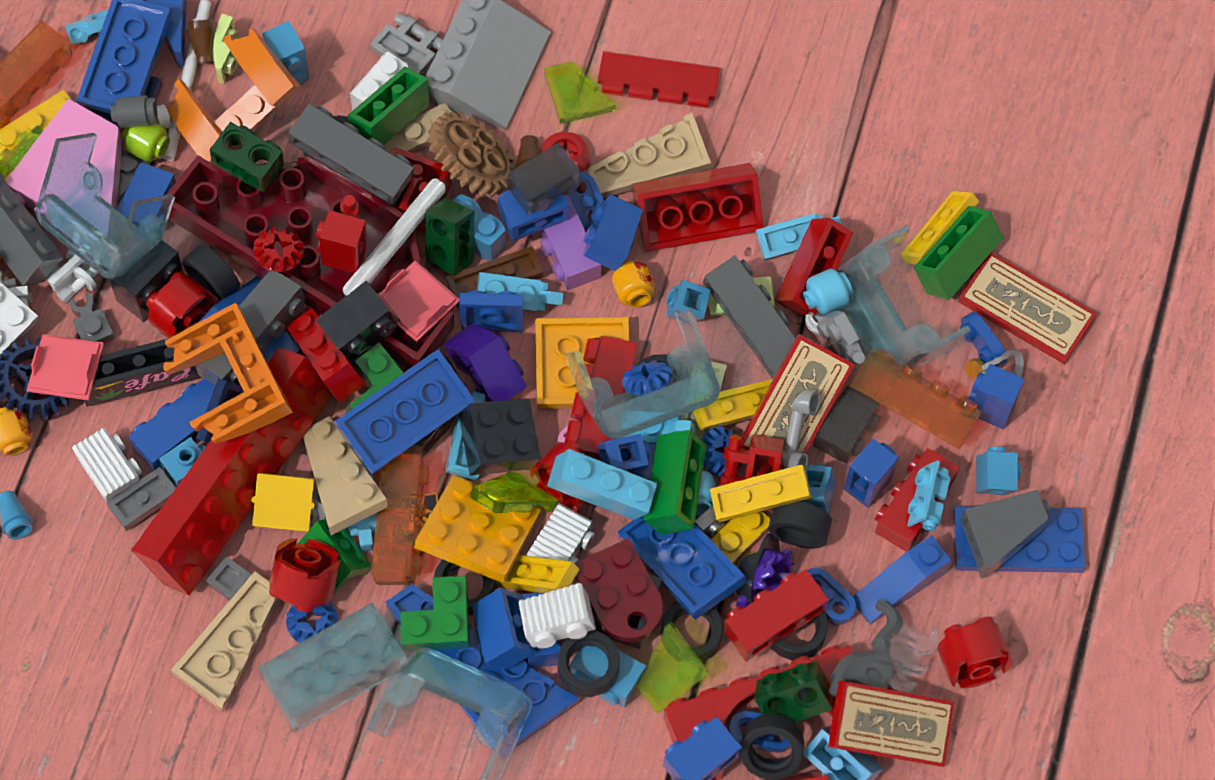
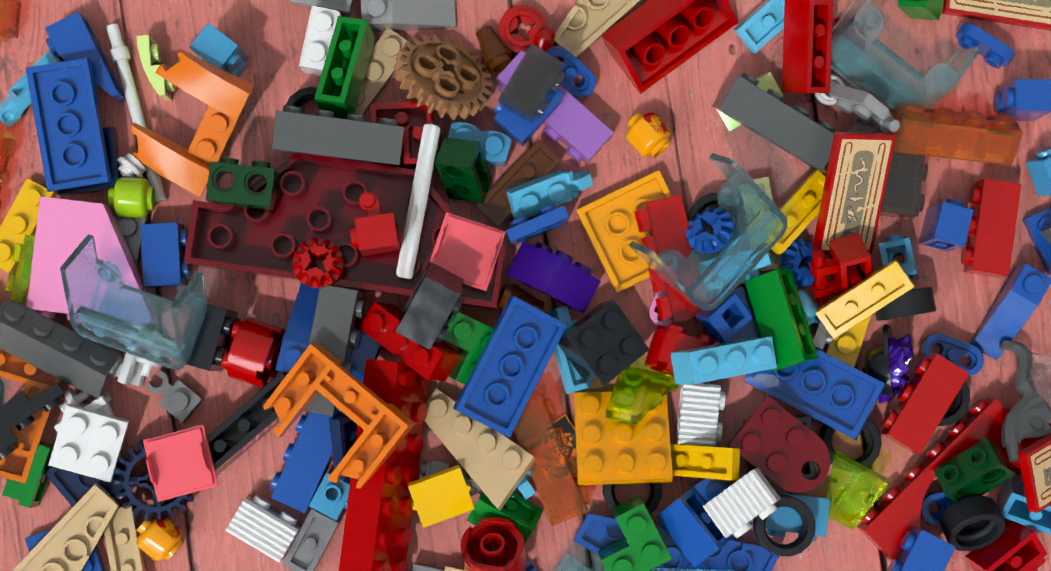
camera: 25 degrees left, 20 degrees up
(134, 111) = (110, 182): dark grey brick -> none
(202, 39) = (130, 69): reddish brown cone -> none
(211, 271) = (262, 305): black tyre -> none
(612, 232) = (610, 97): blue brick -> none
(683, 298) = (699, 132): dark azure brick -> none
(805, 403) = (870, 196): light grey bar -> none
(827, 291) = (837, 71): medium azure head -> none
(931, 483) = (1005, 216): medium azure hinge -> none
(975, 365) = (989, 75): light grey piece -> none

